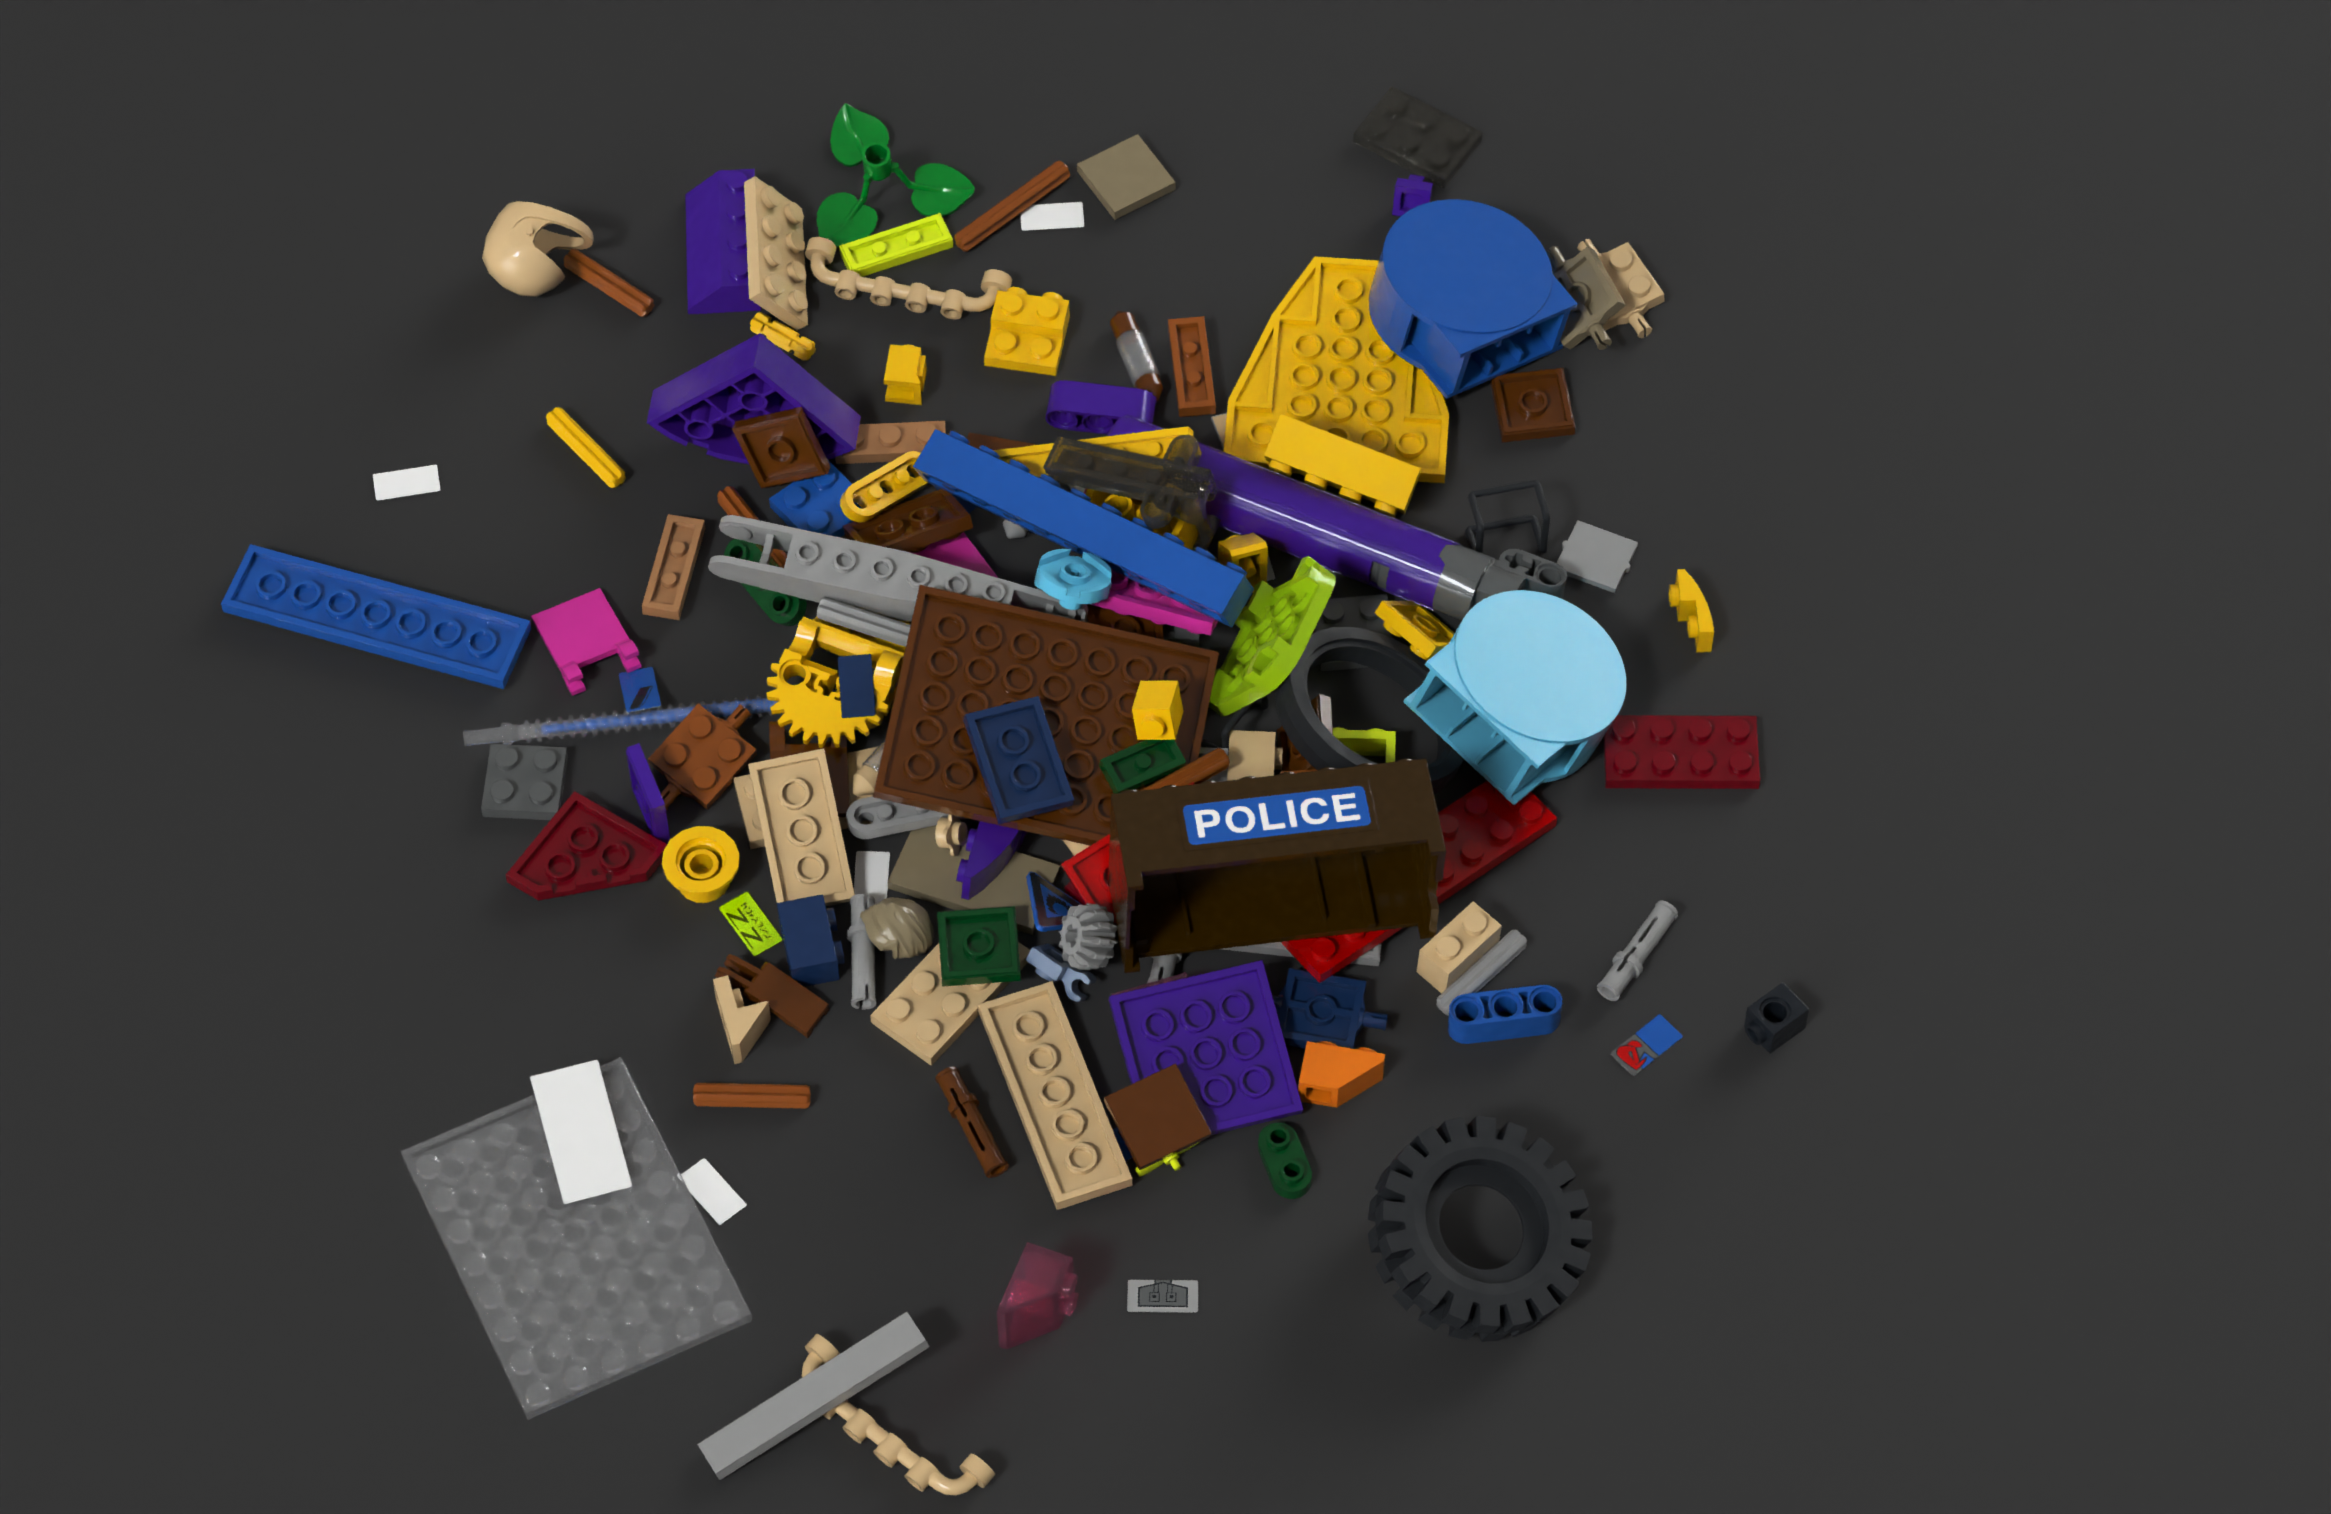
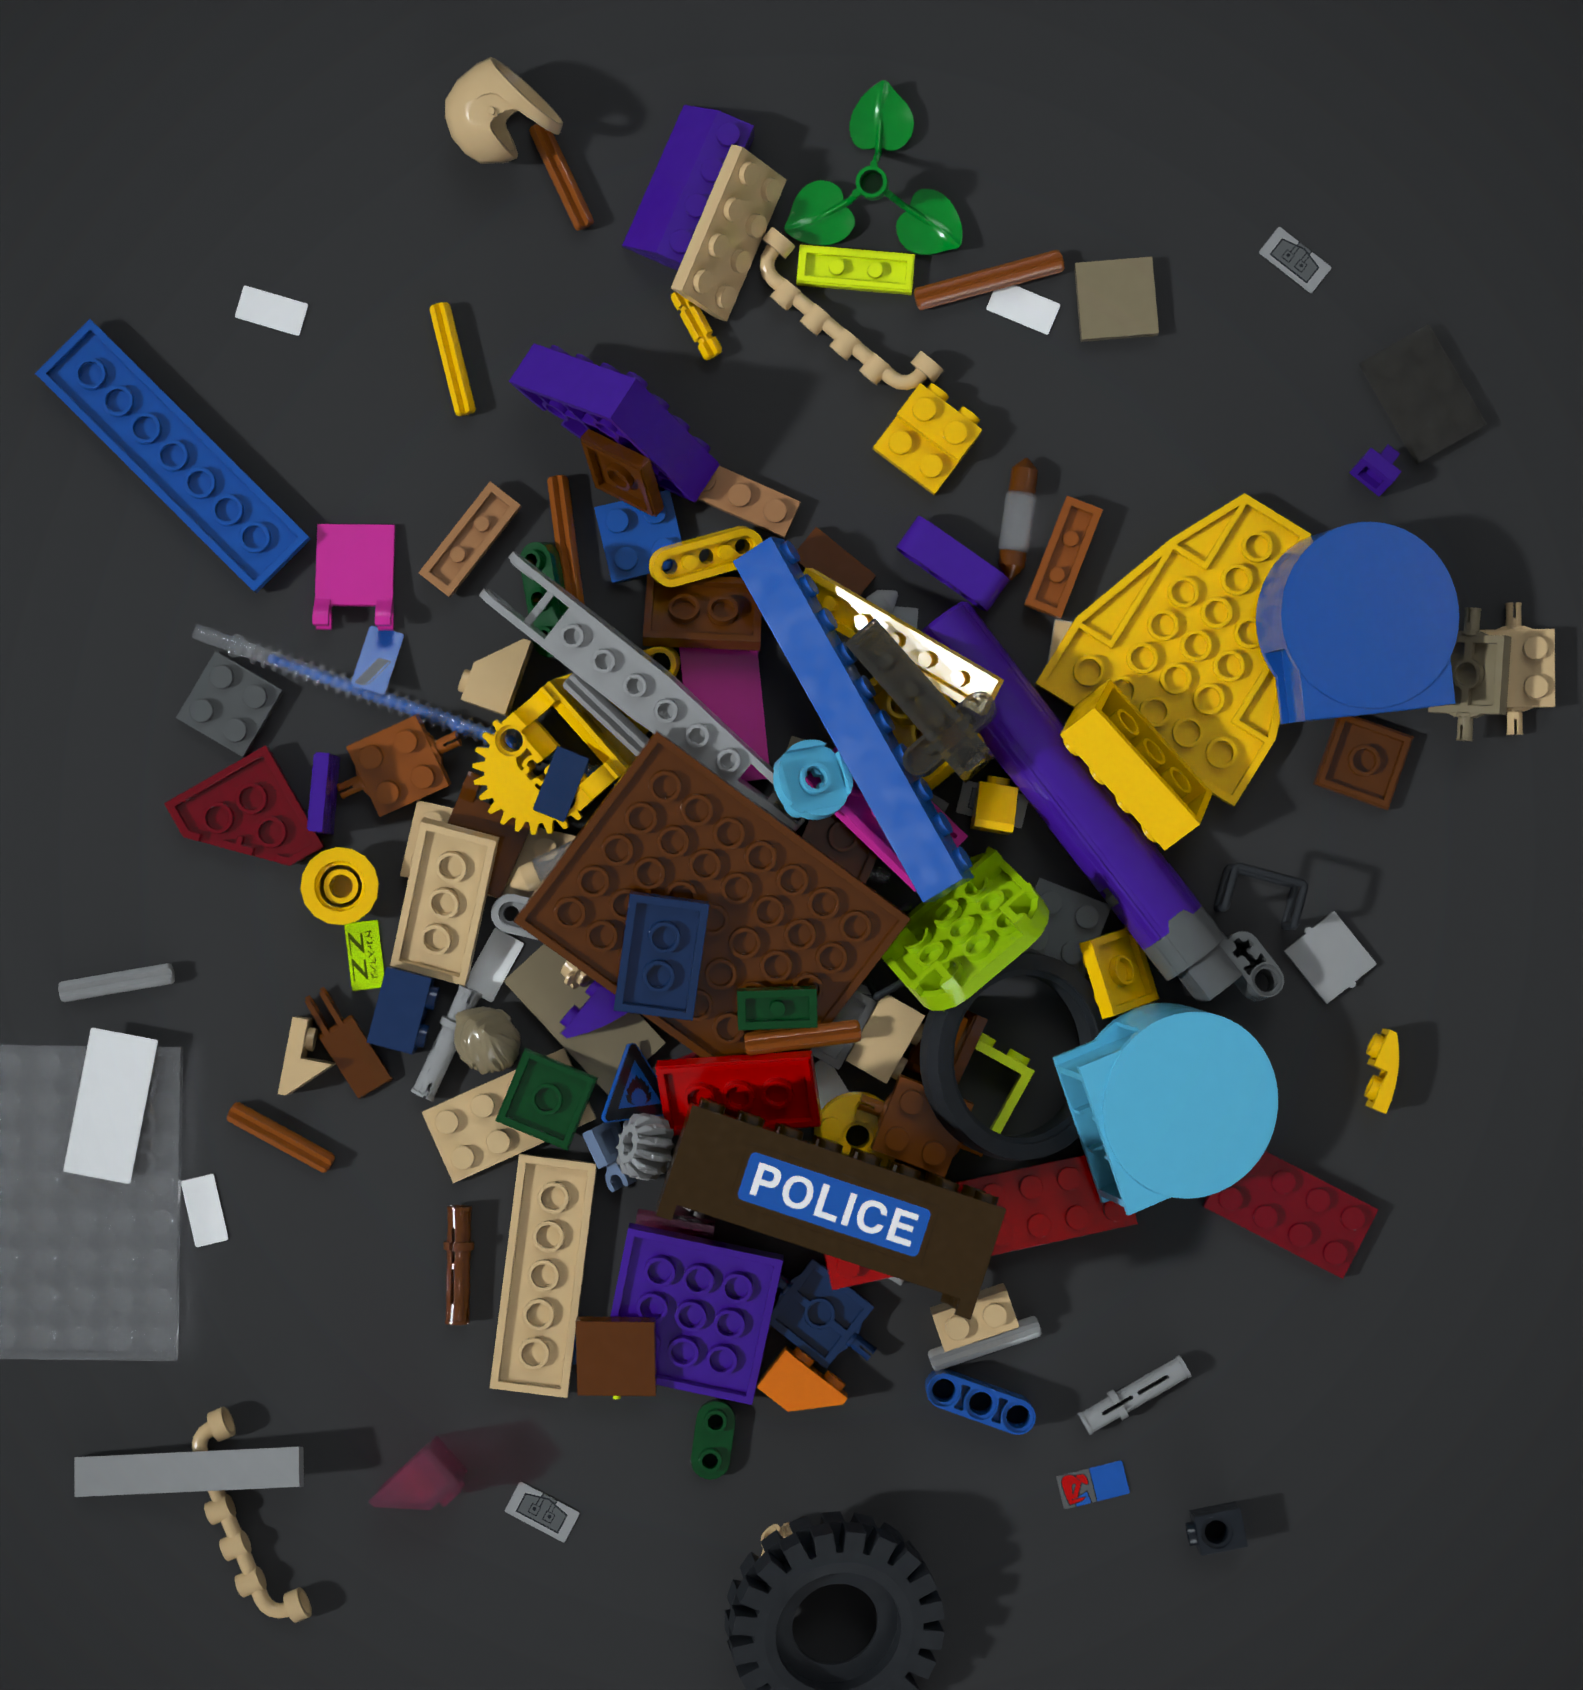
camera: 30 degrees right, 30 degrees up
(533, 1039) = (116, 982): none -> light grey axle
(751, 655) = (496, 678): none -> tan slope
(905, 374) = (788, 429): yellow window -> none
(1157, 710) = (813, 971): yellow brick -> none
(1256, 94) = (1295, 259): none -> sticker

